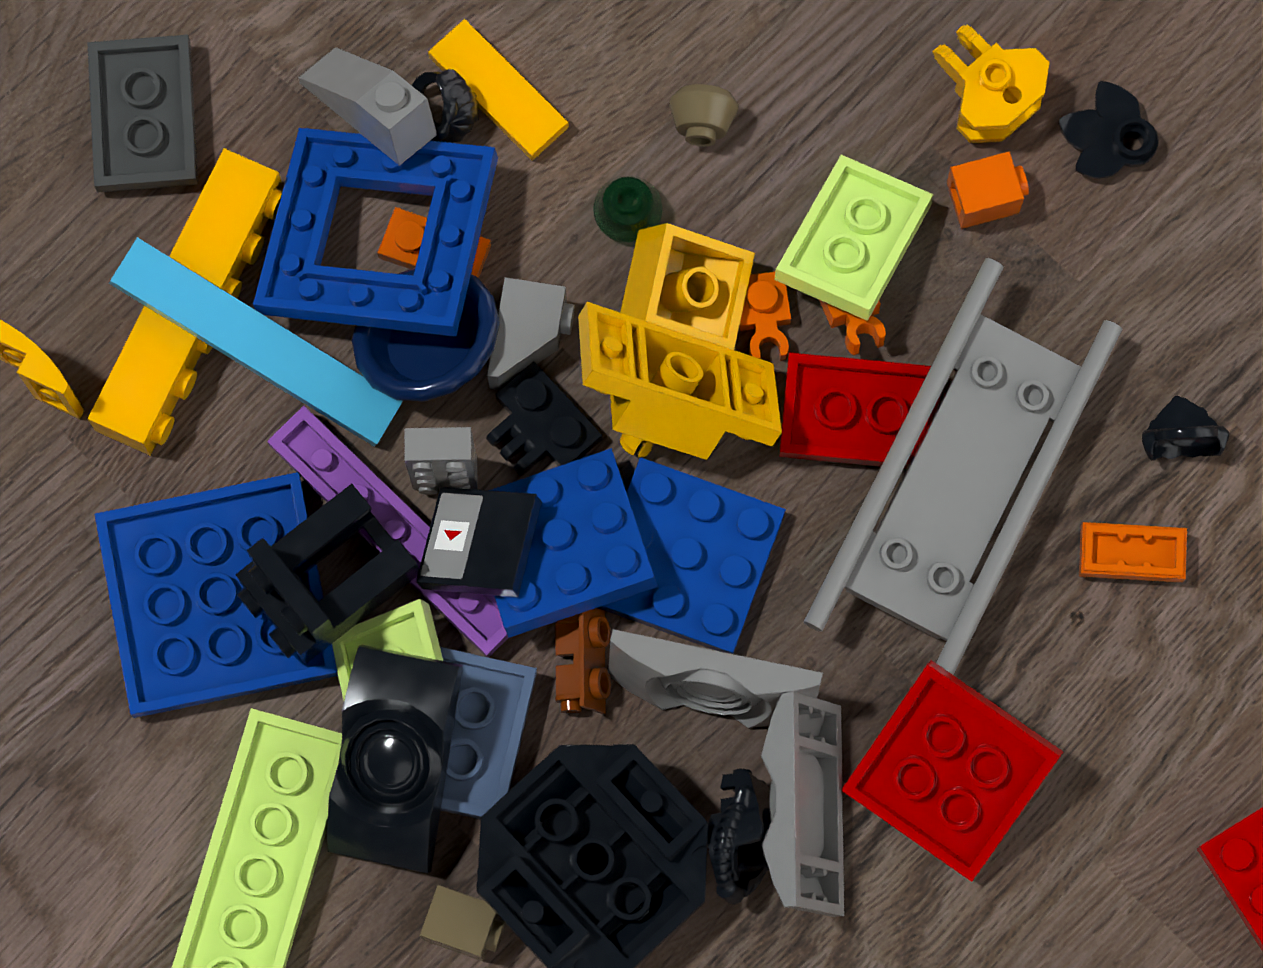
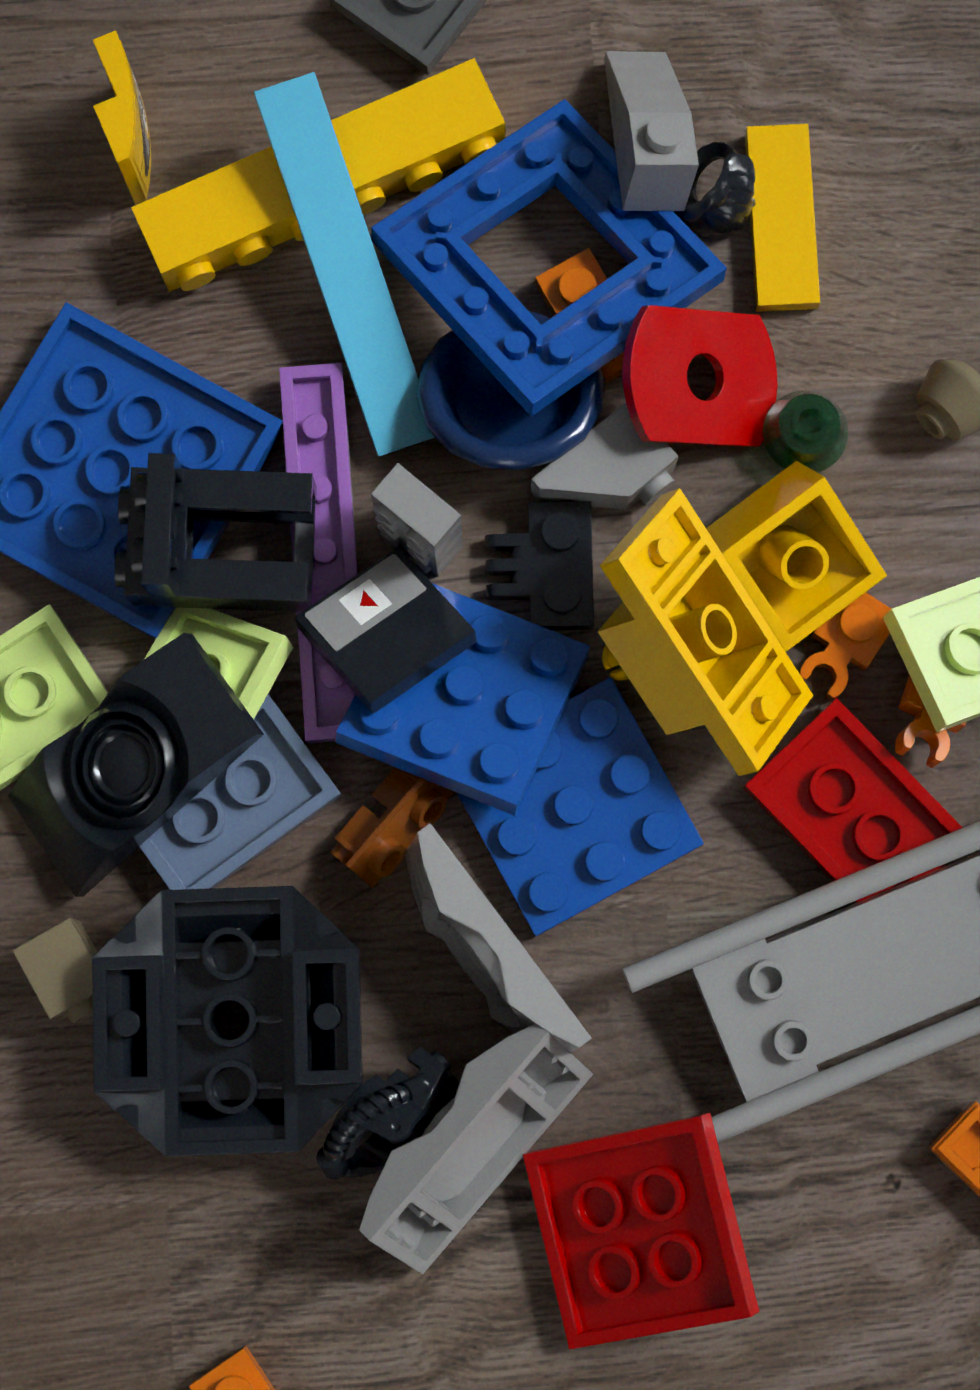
camera: 40 degrees right, 5 degrees up
(512, 251) = (657, 385): none -> red piece

